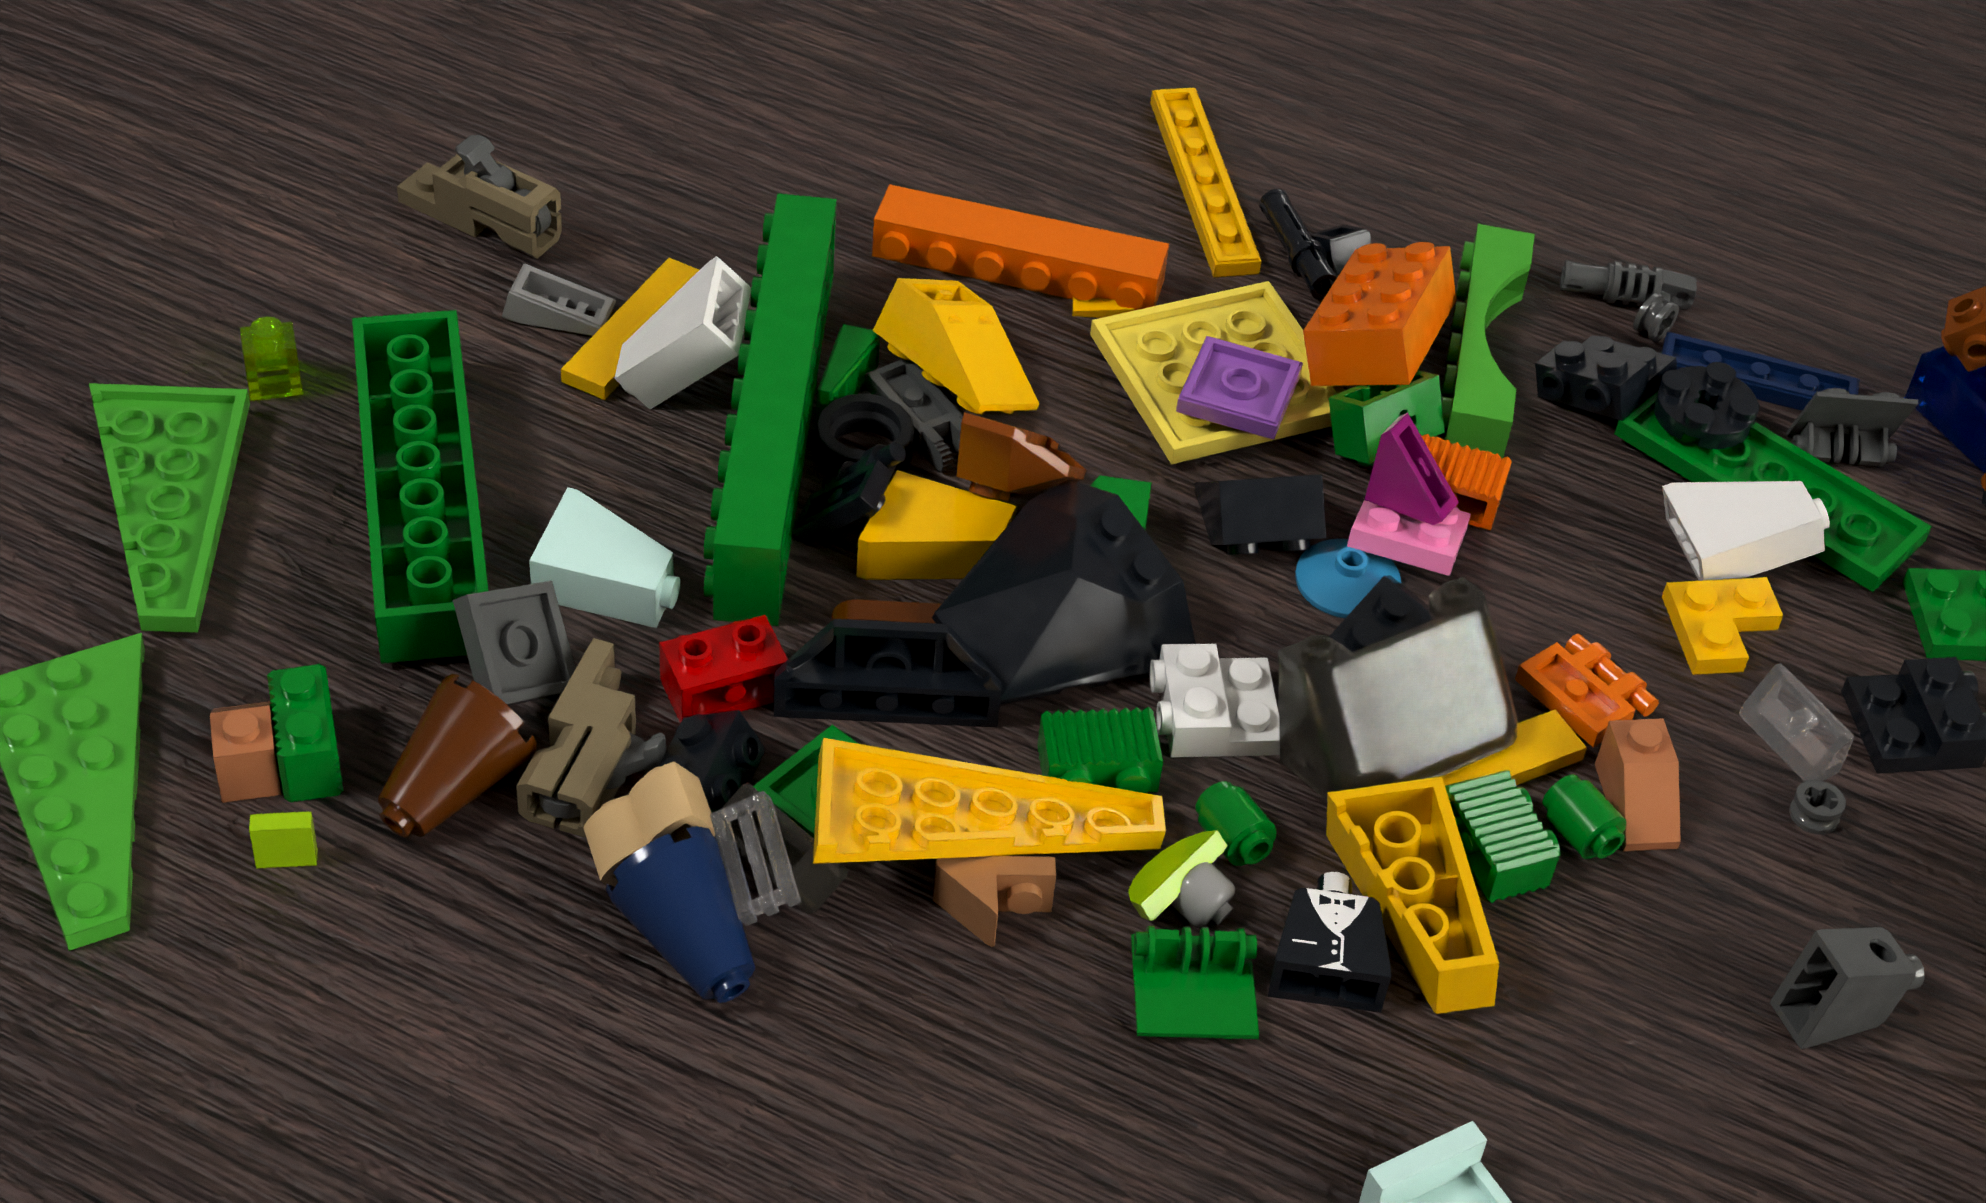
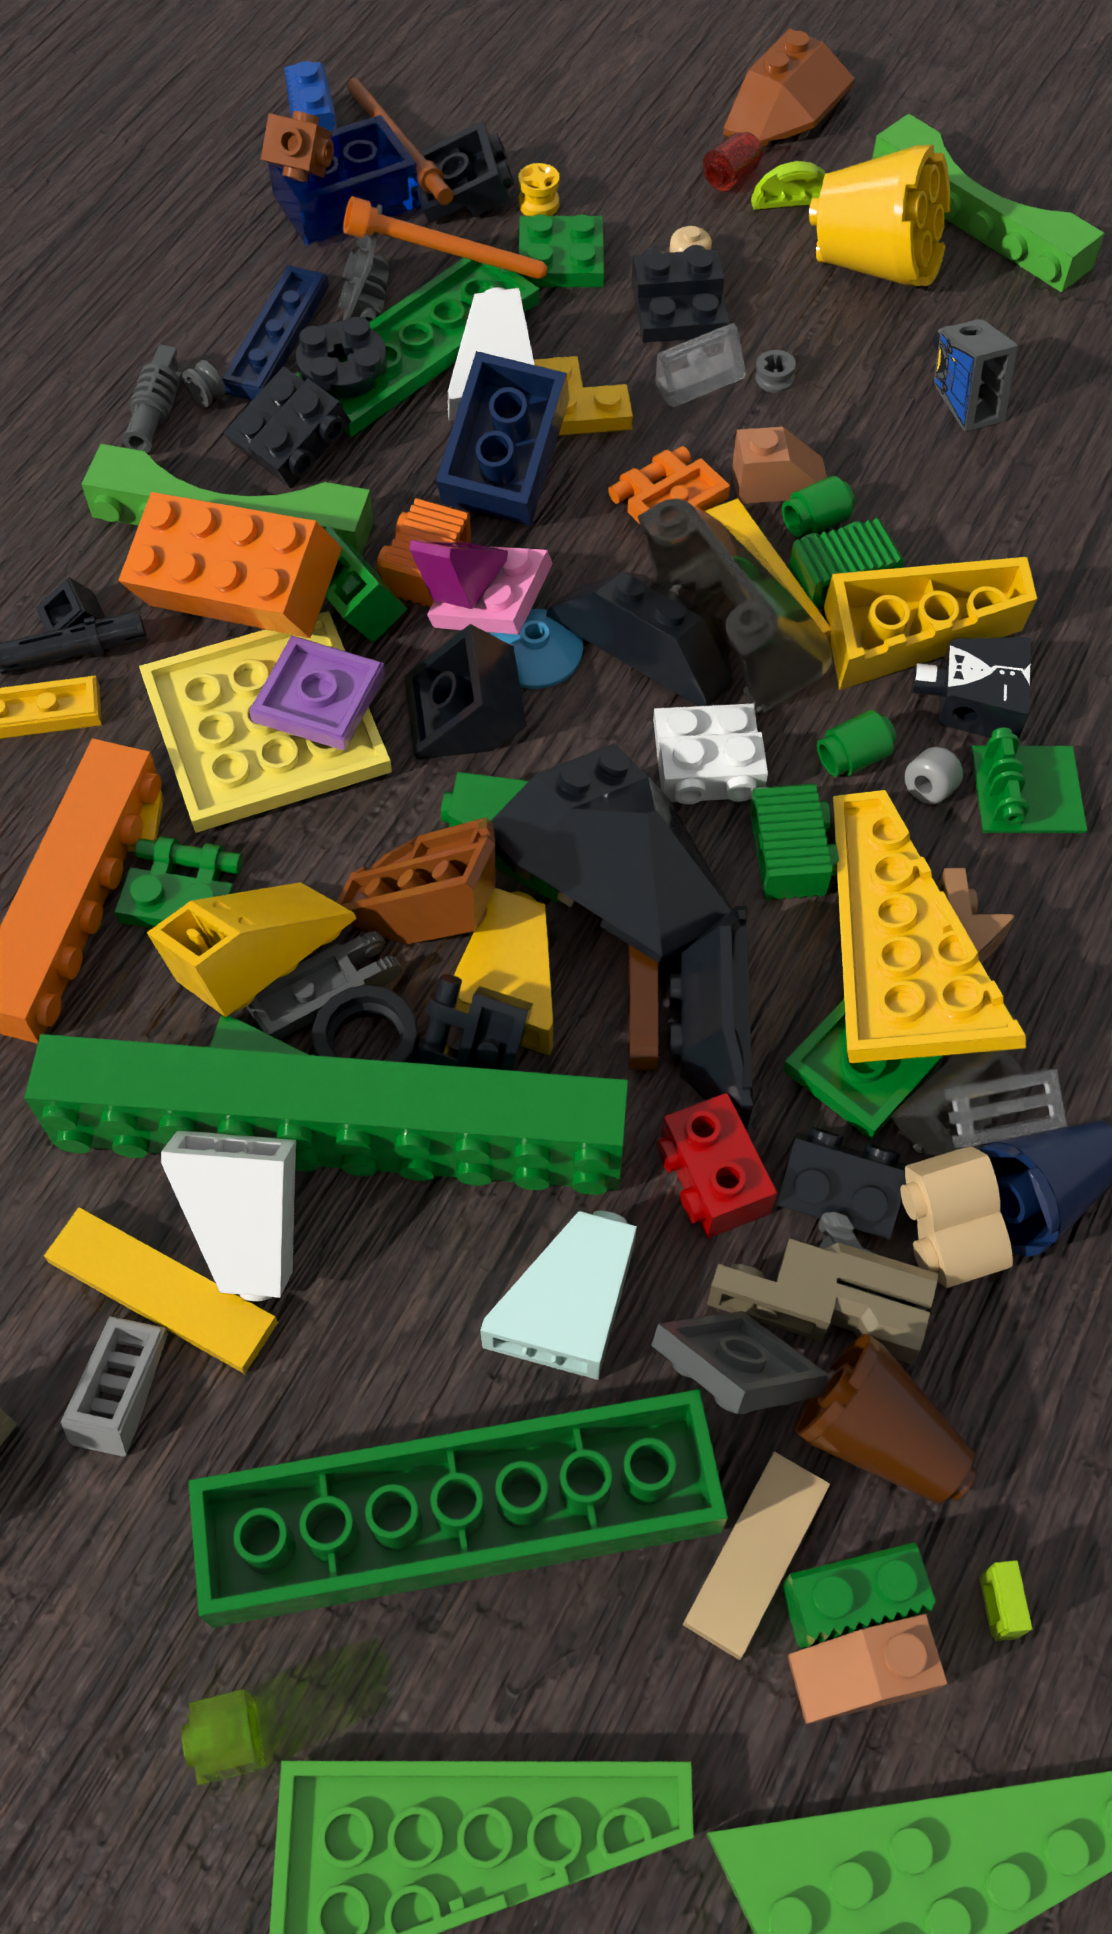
camera: 85 degrees left, 15 degrees up
(361, 684) = (756, 1555): none -> tan tile
(1023, 311) = (156, 894): none -> green plate
(1162, 876) = (922, 794): lime tile -> none
(1602, 519) = (503, 438): none -> dark blue brick
(1874, 377) = (364, 220): none -> orange piece

